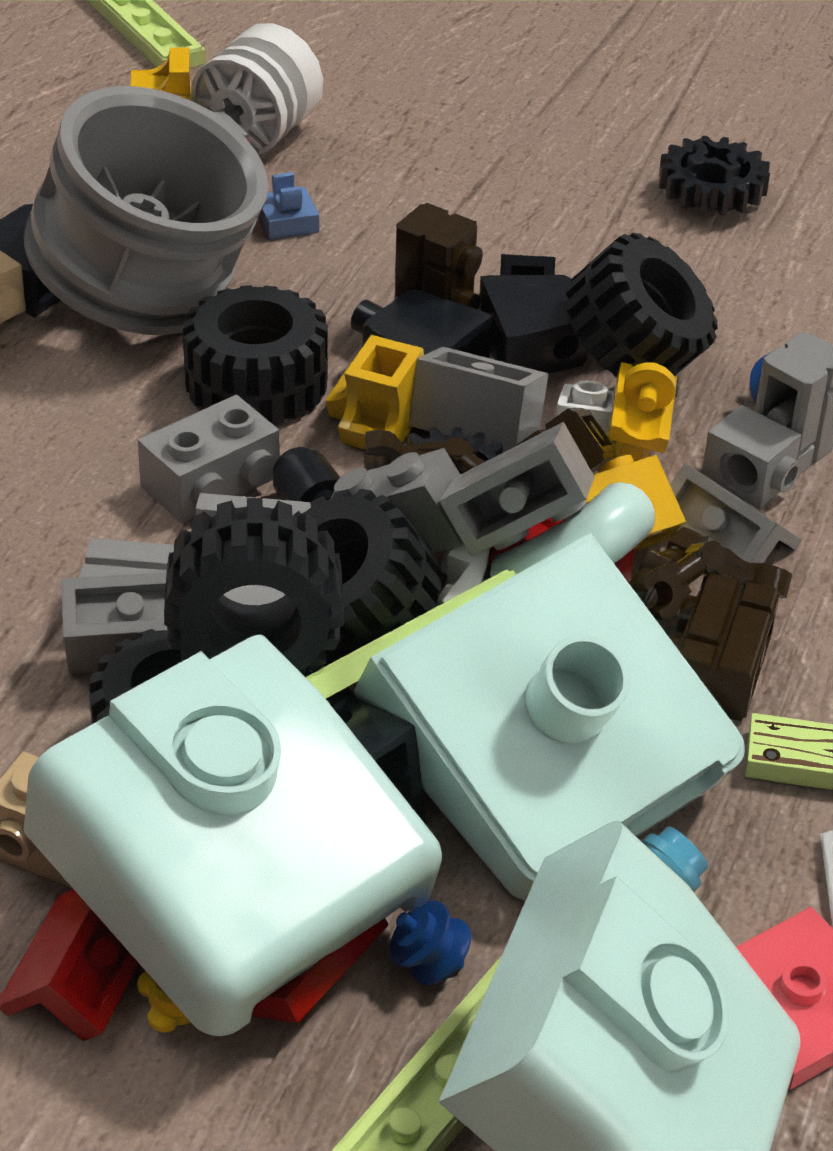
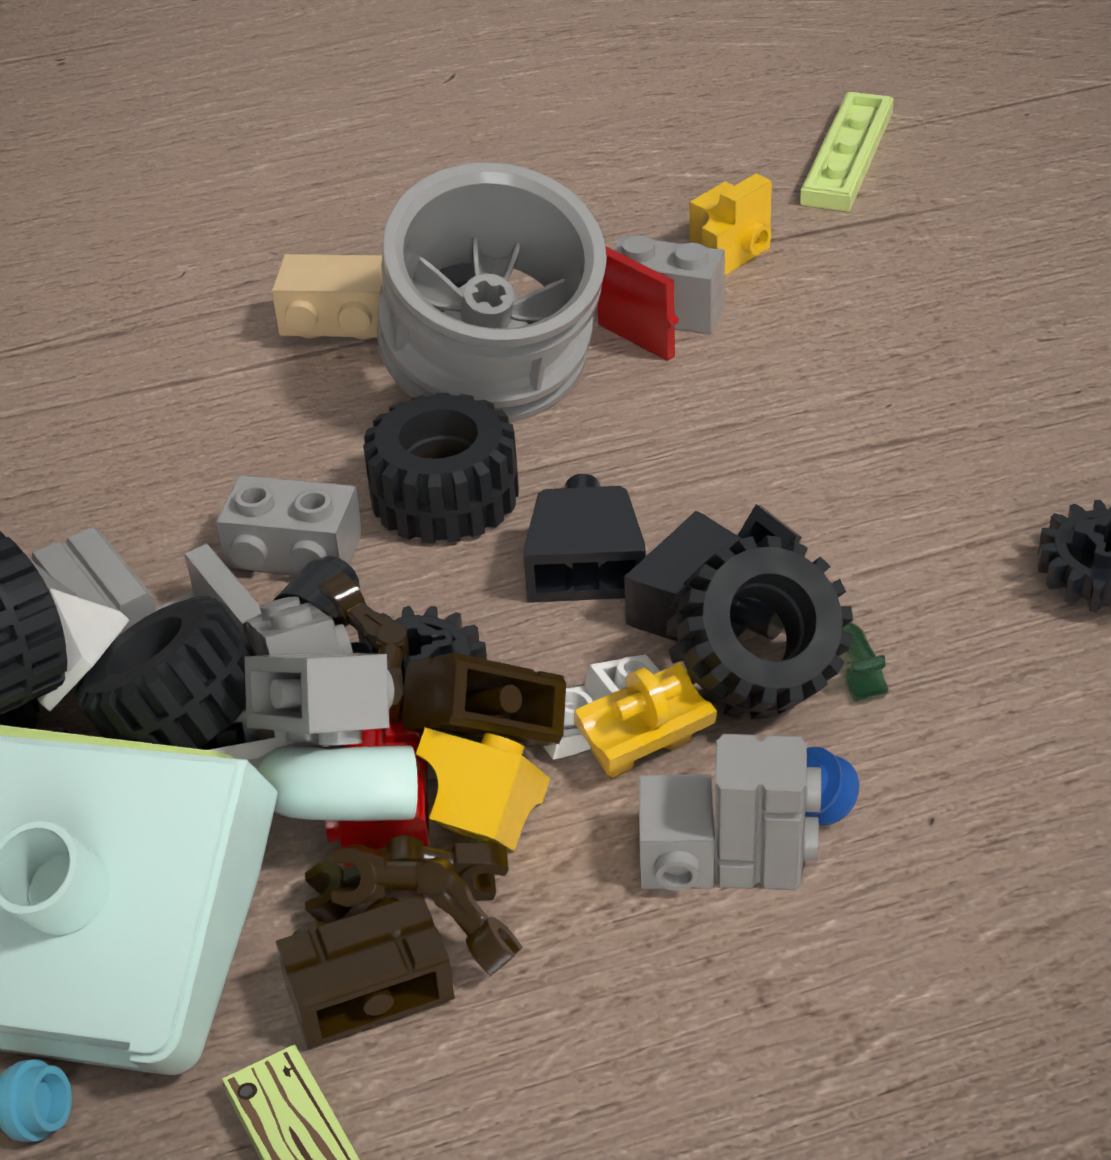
camera: 55 degrees right, 0 degrees up
(263, 82) = (793, 246): white wheel -> none
(288, 209) = (691, 367): medium blue tile -> none
(375, 391) = (473, 562): yellow brick -> none
(437, 255) = (664, 472): dark brown brick -> none
(477, 396) = (526, 609): light grey brick -> none
(726, 517) = (570, 870): light grey panel -> none

